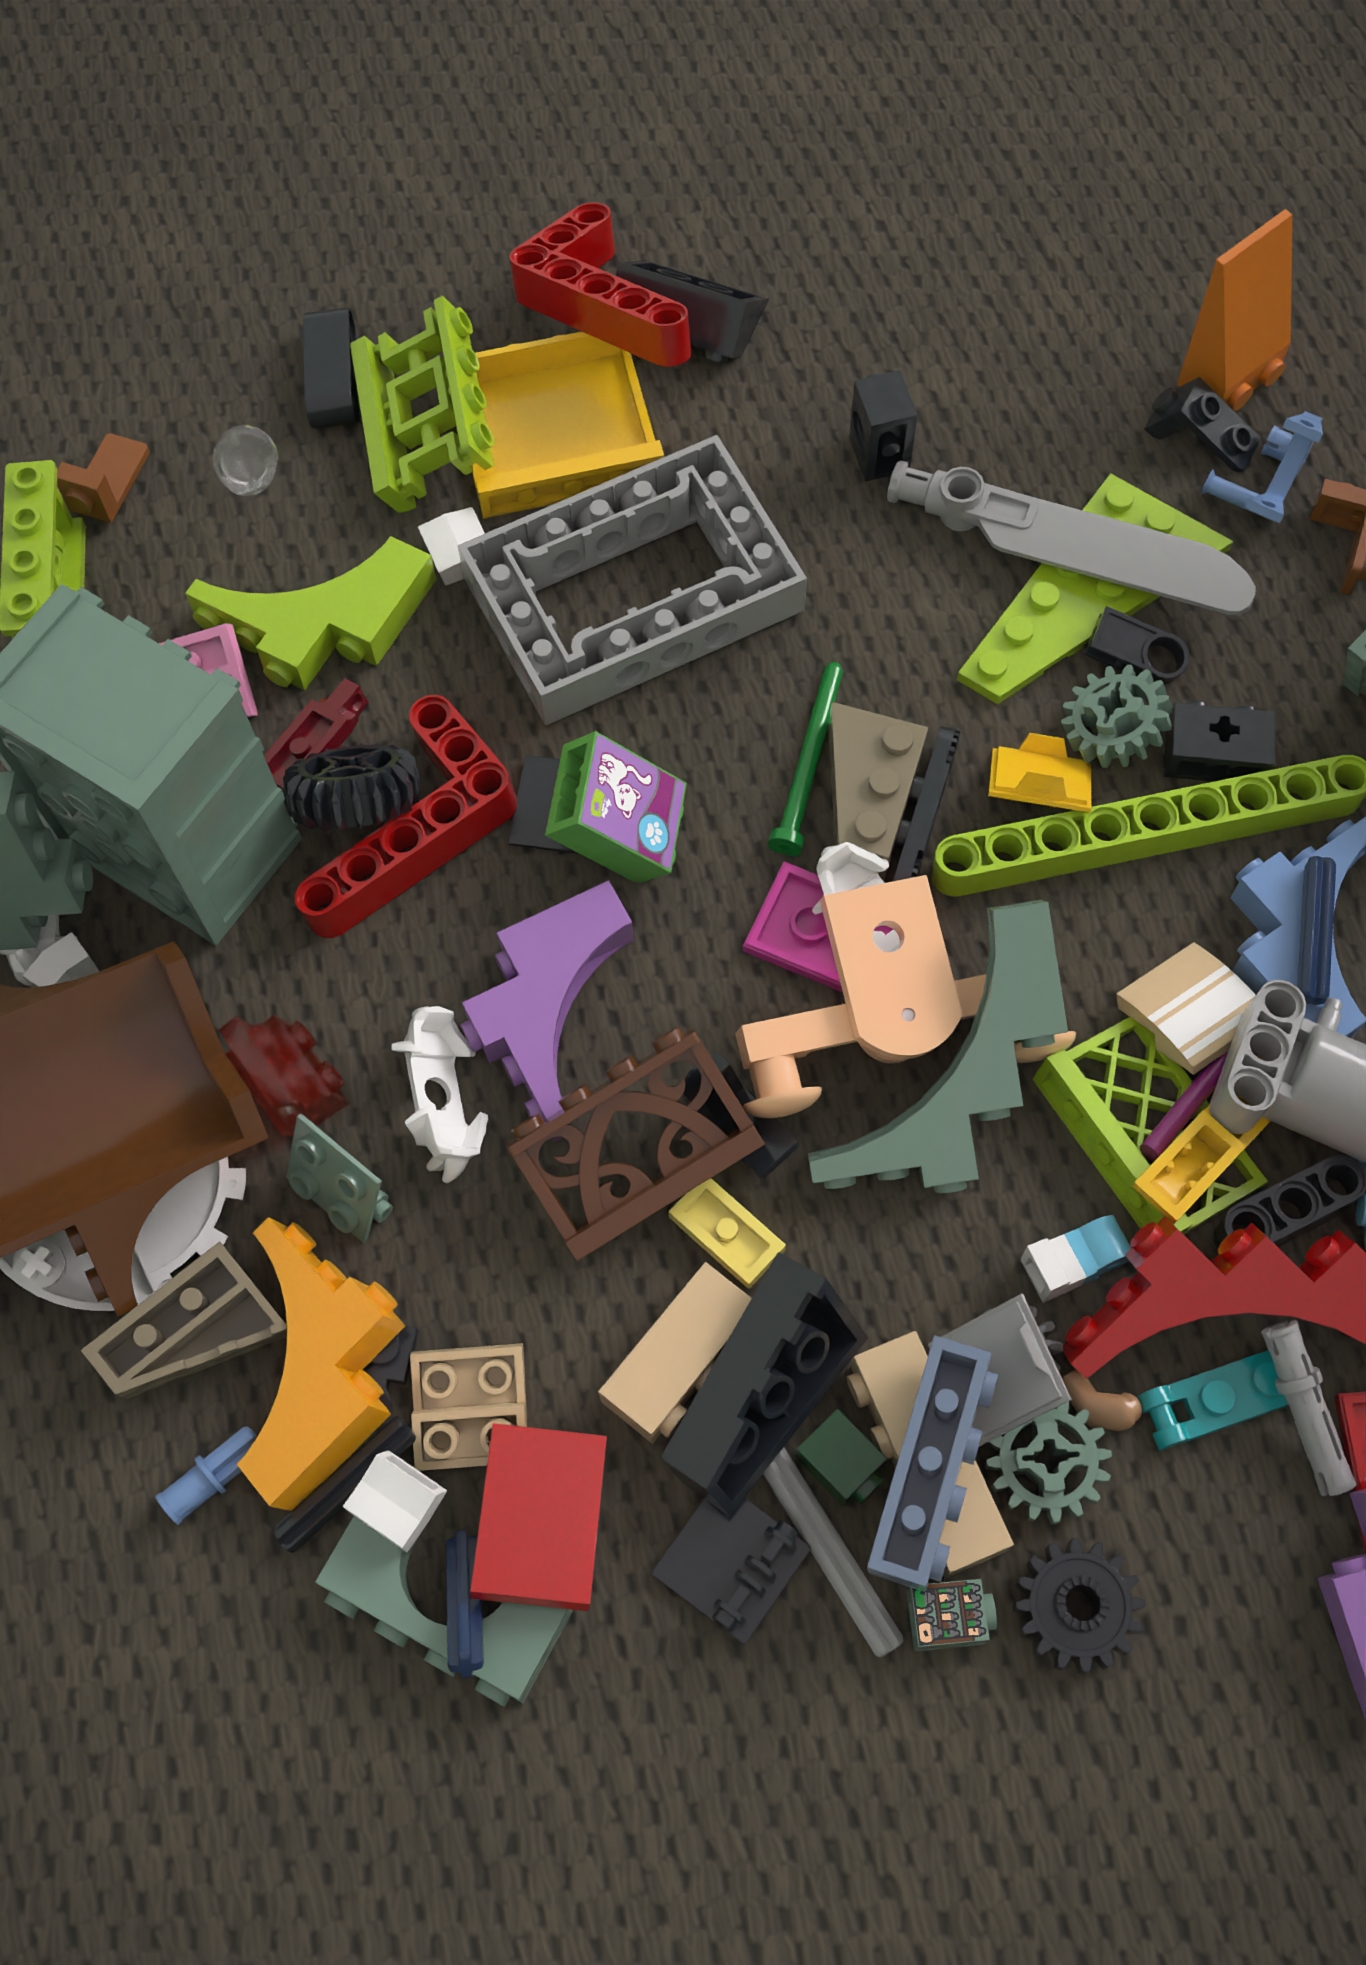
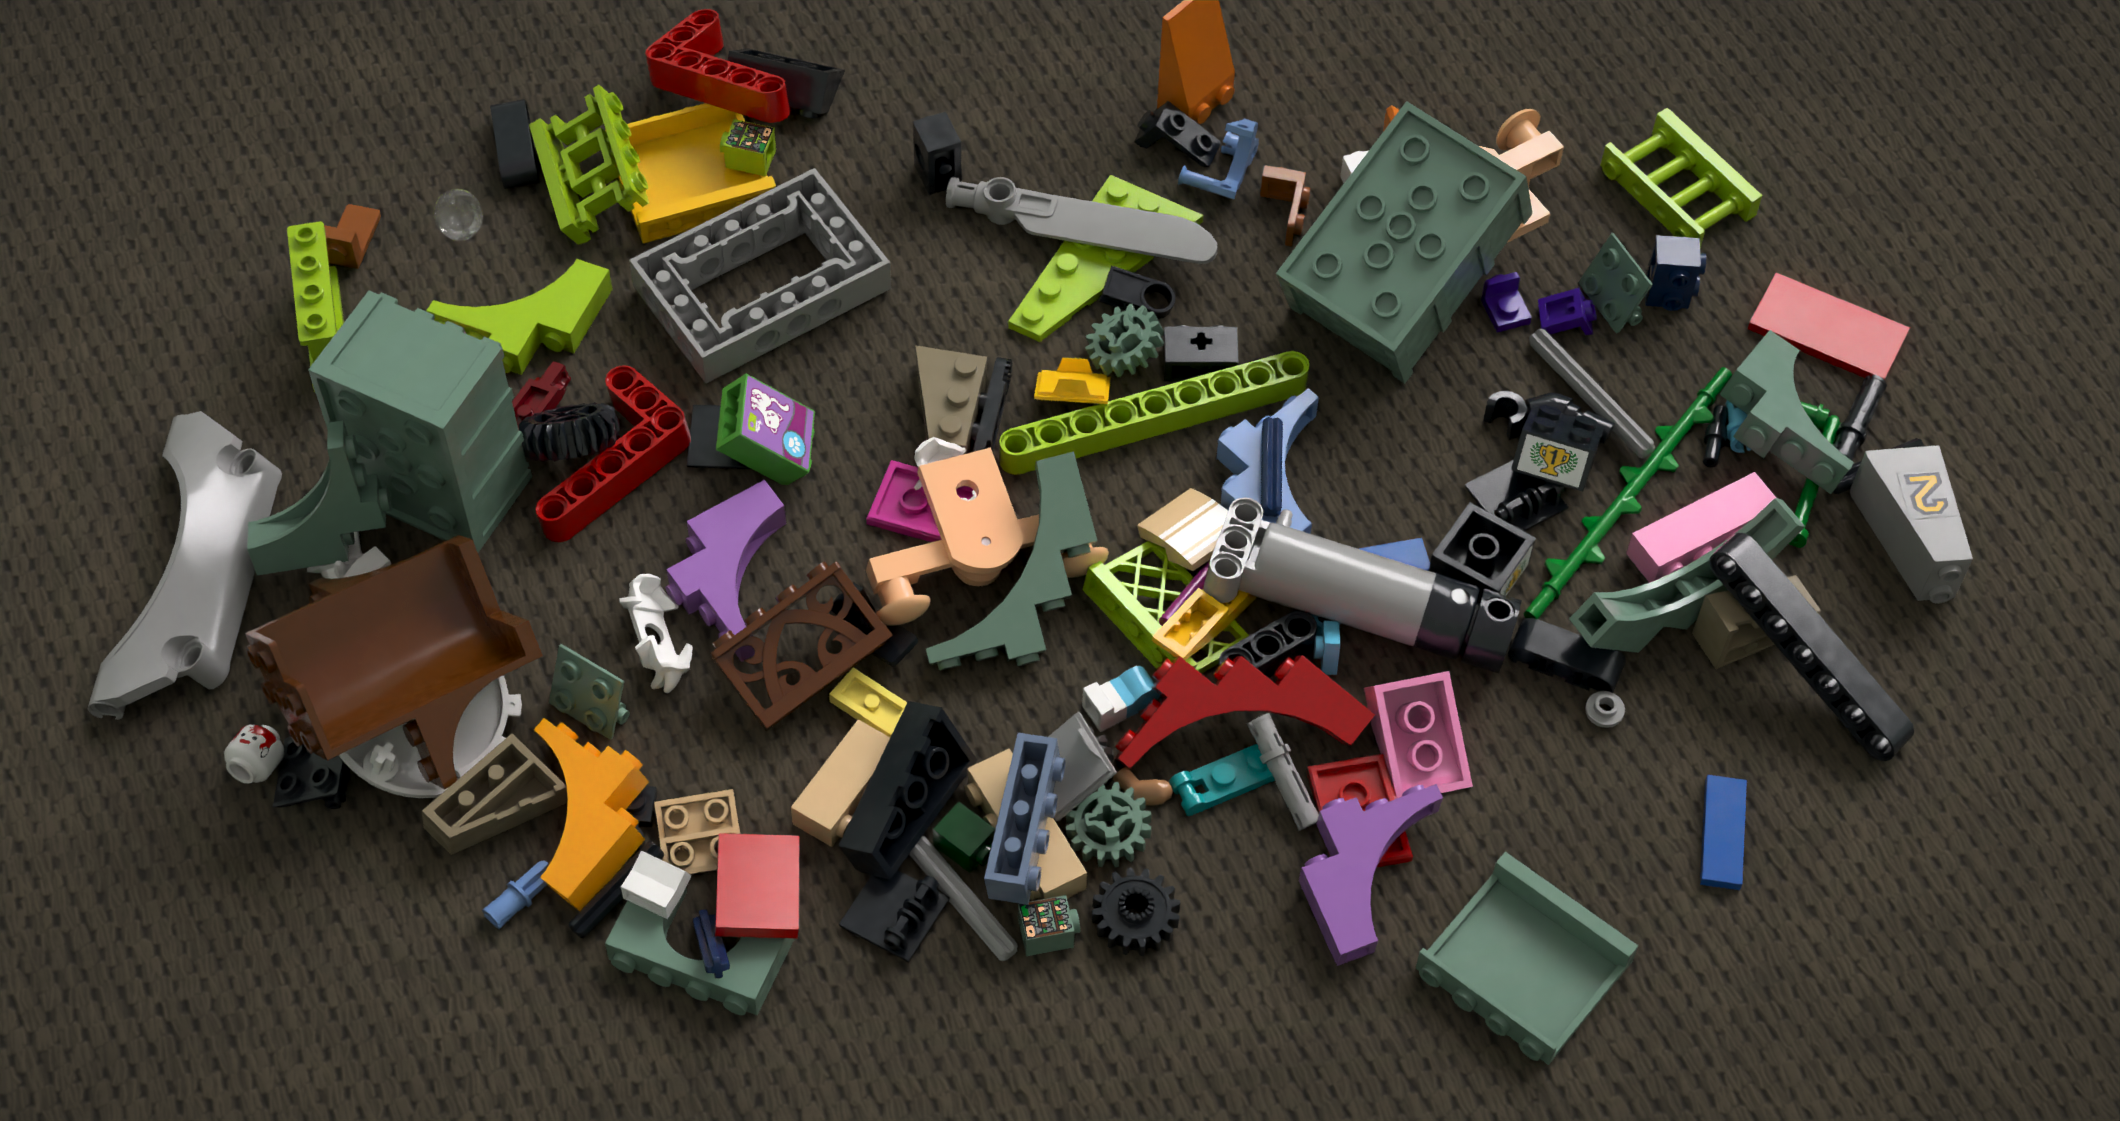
camera: 10 degrees left, 10 degrees down
(284, 1071) = (546, 625): clear red brick -> none
(444, 535) = (616, 259): white piece -> none
(633, 397) = (748, 147): none -> brick
(787, 837) = (892, 444): green bar -> none

